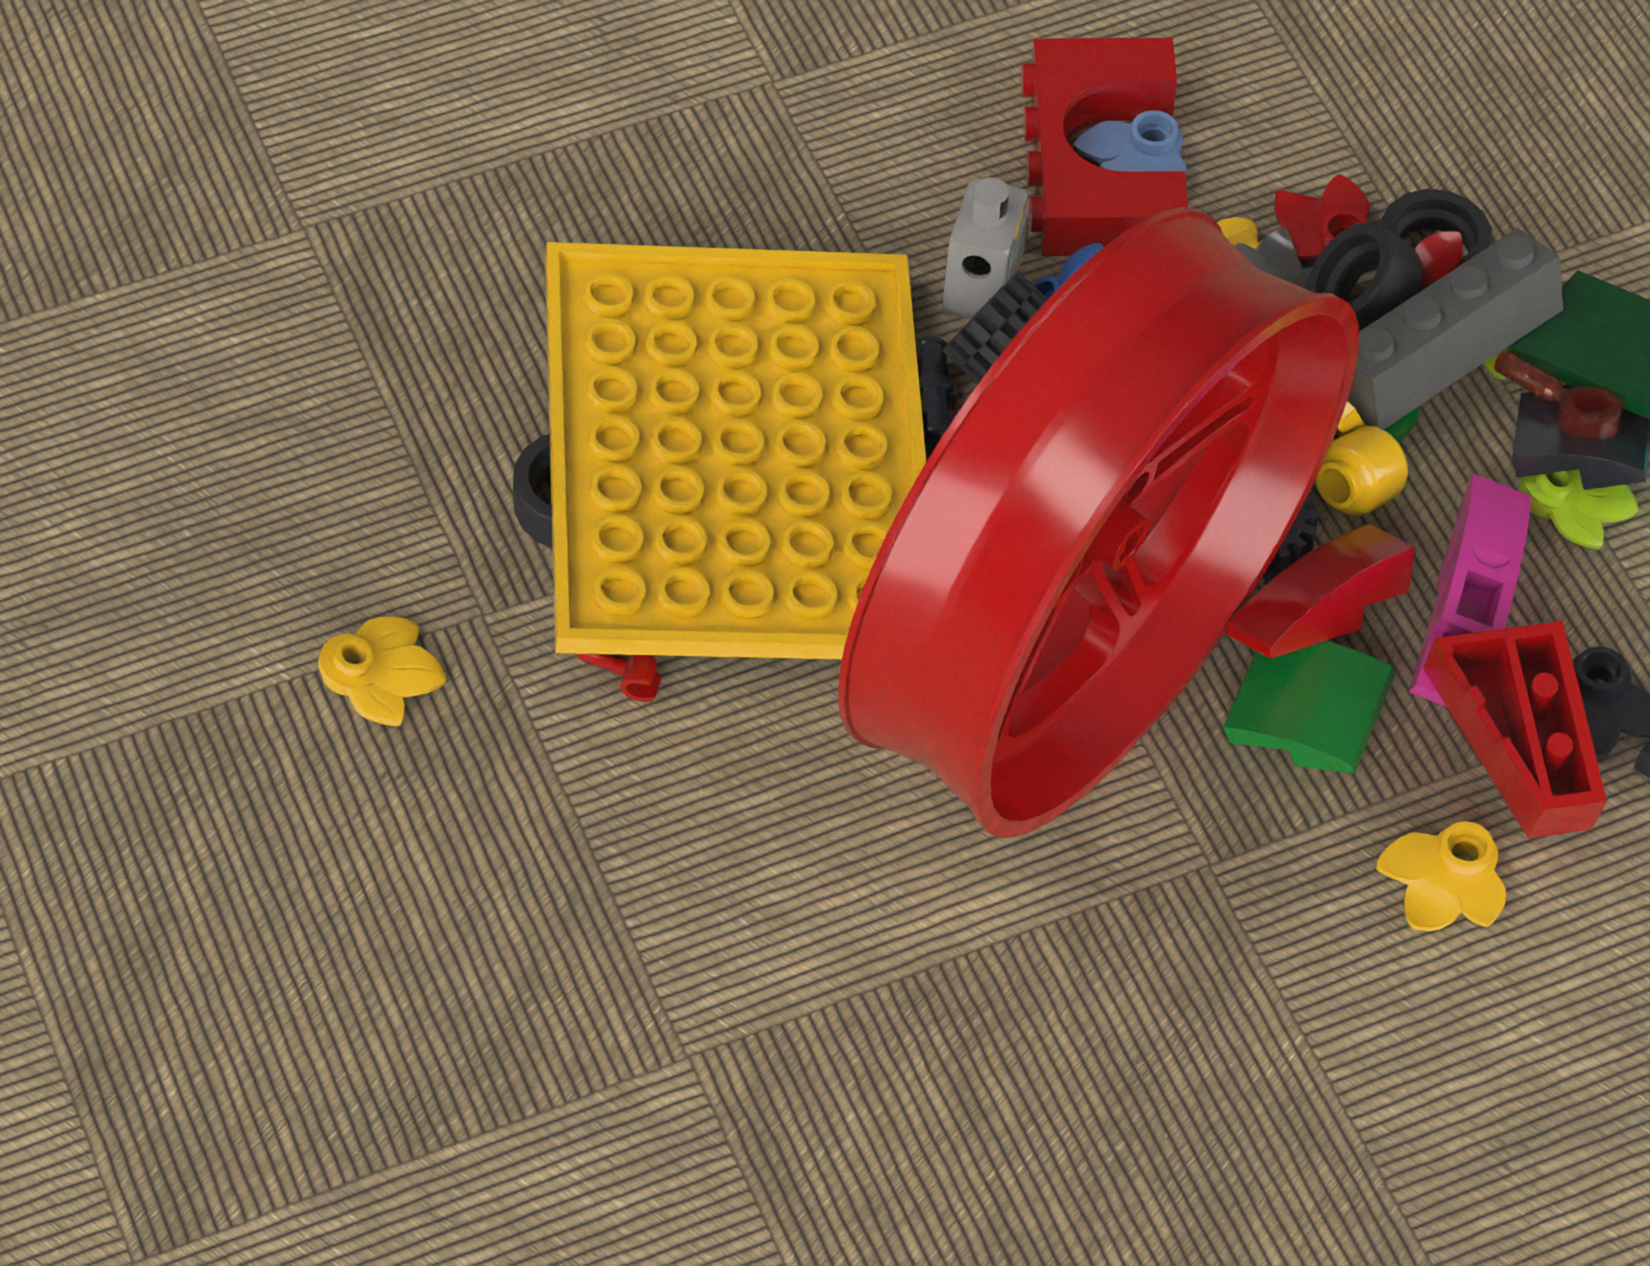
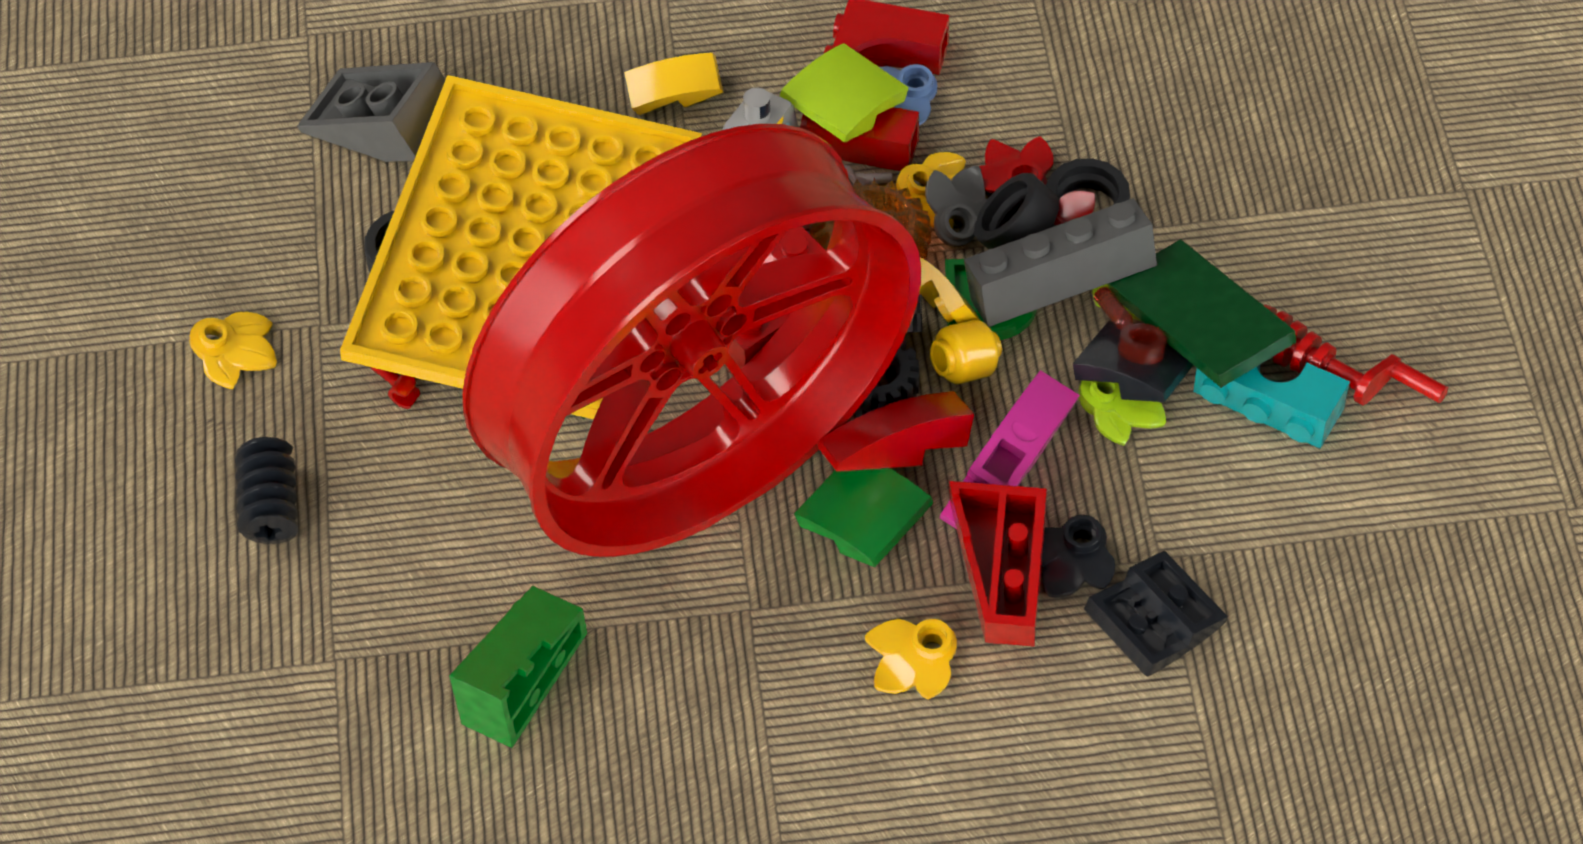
camera: 20 degrees right, 0 degrees up
(456, 308) = (377, 109): none -> dark grey slope
(515, 851) = (266, 490): none -> black piece
(835, 192) = (673, 79): none -> yellow slope
(948, 1005) = (517, 665): none -> green wedge
(1085, 163) = (844, 92): none -> lime slope

